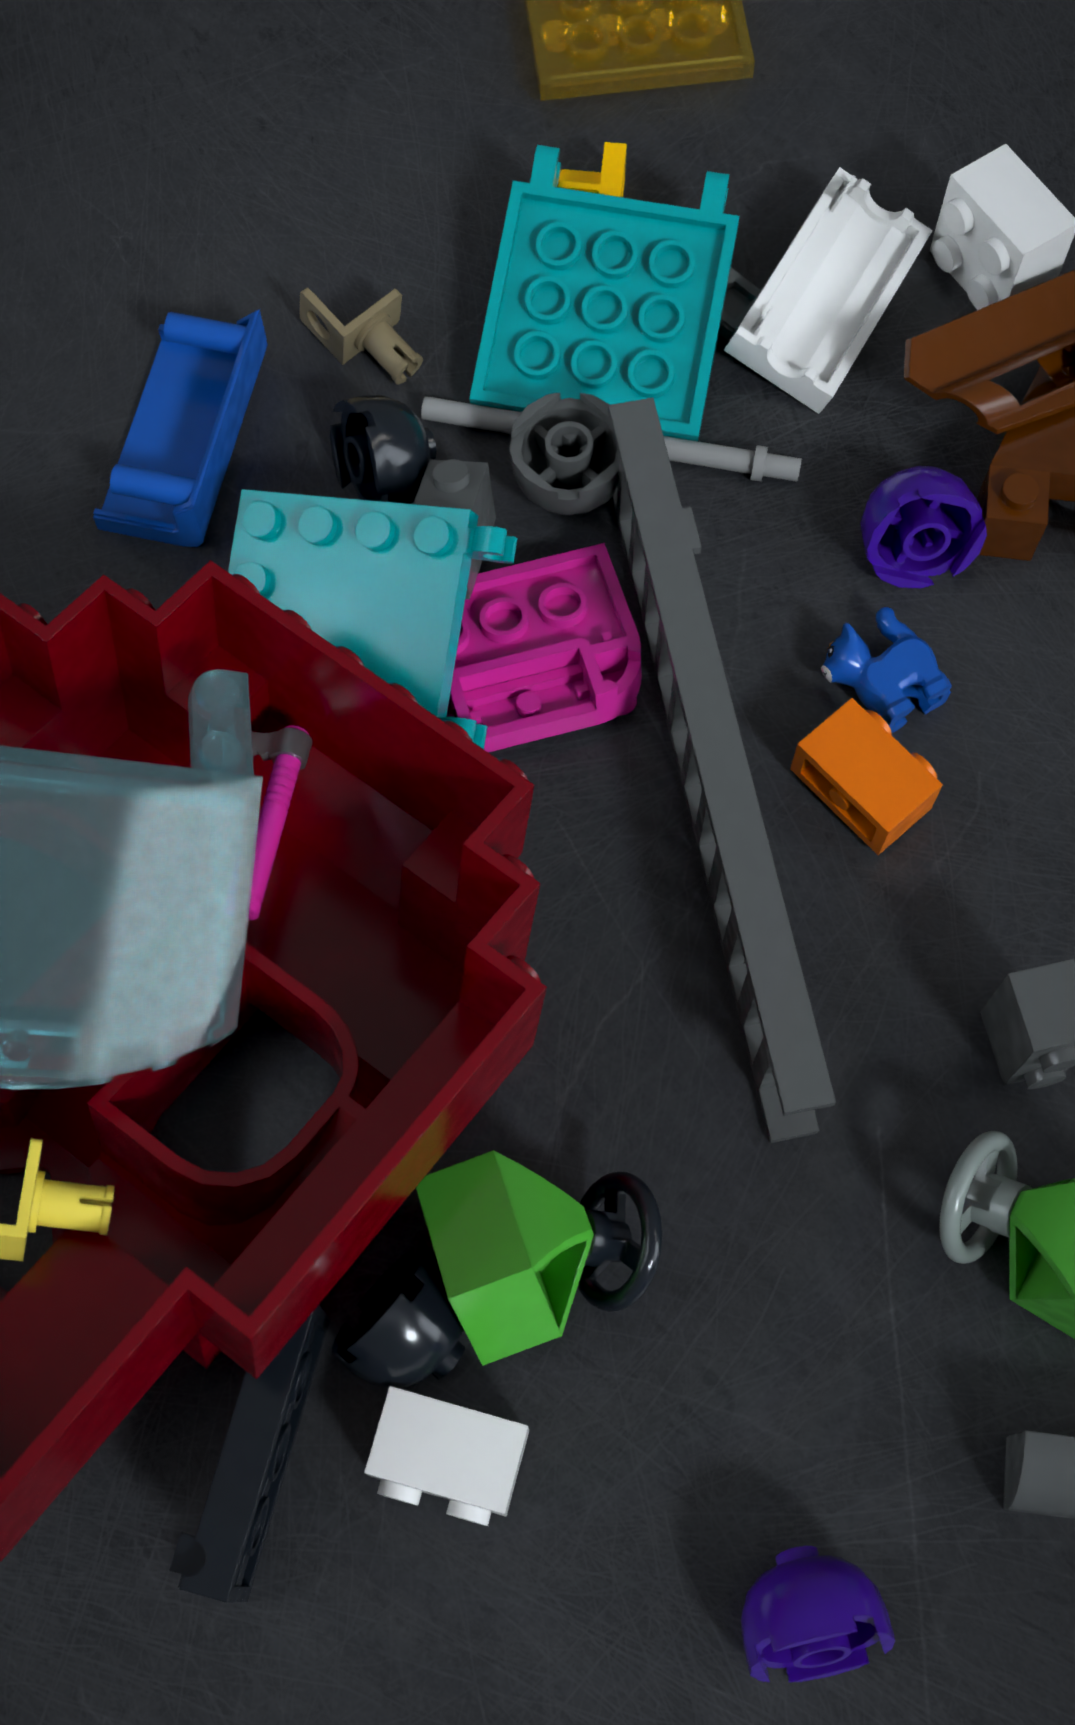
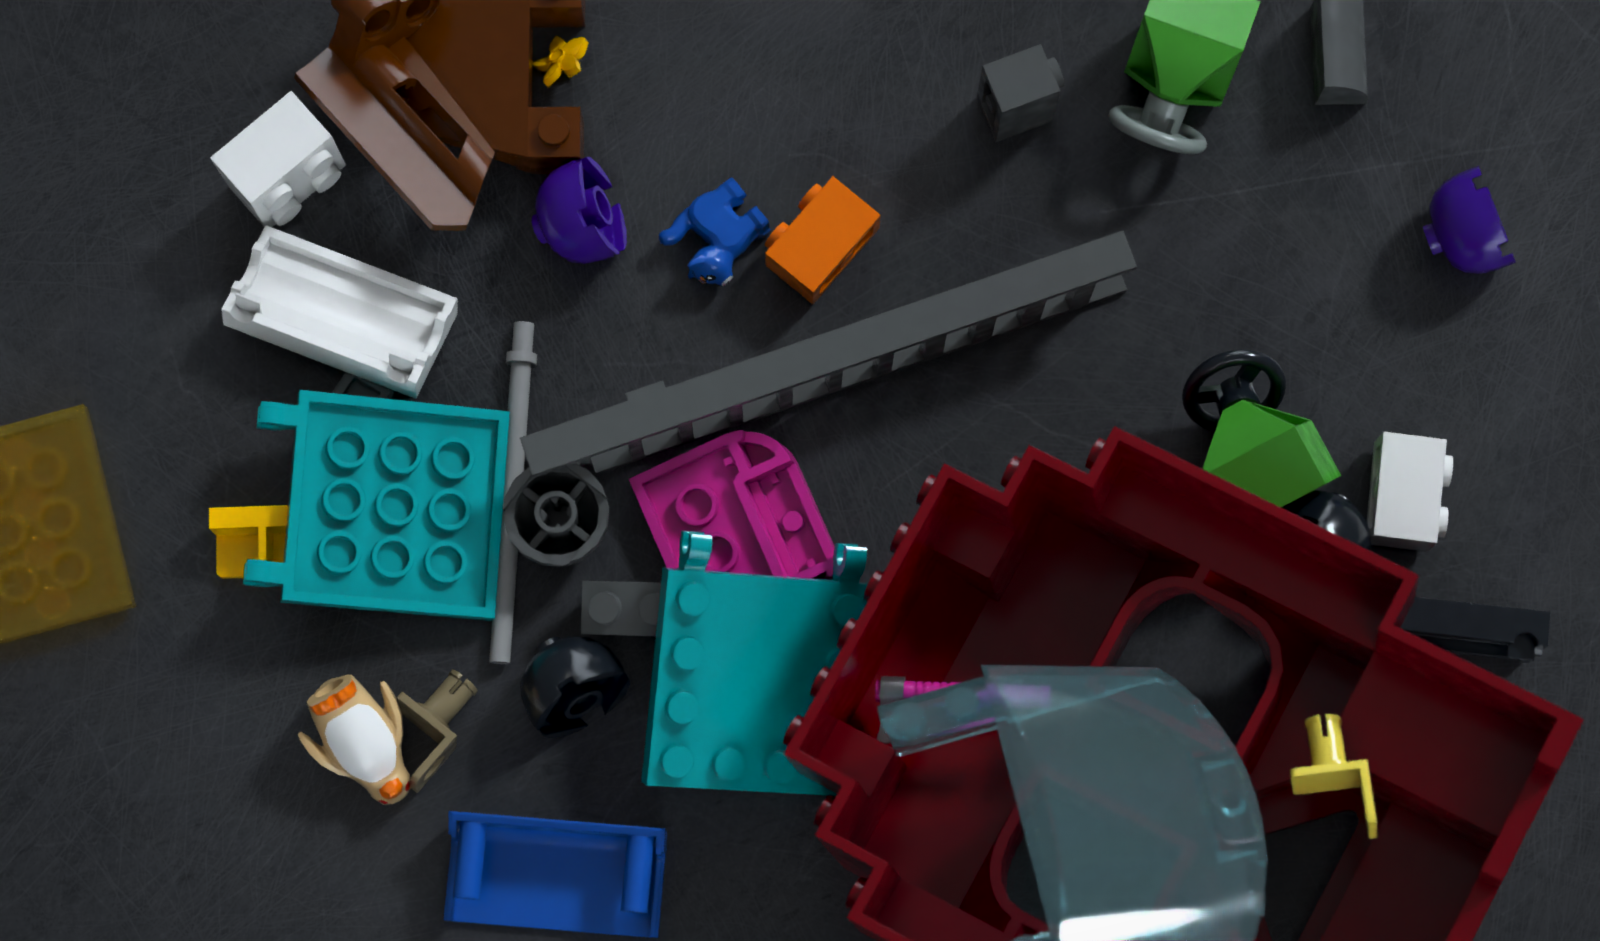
camera: 100 degrees left, 10 degrees up
(364, 255) = (360, 737): none -> animal

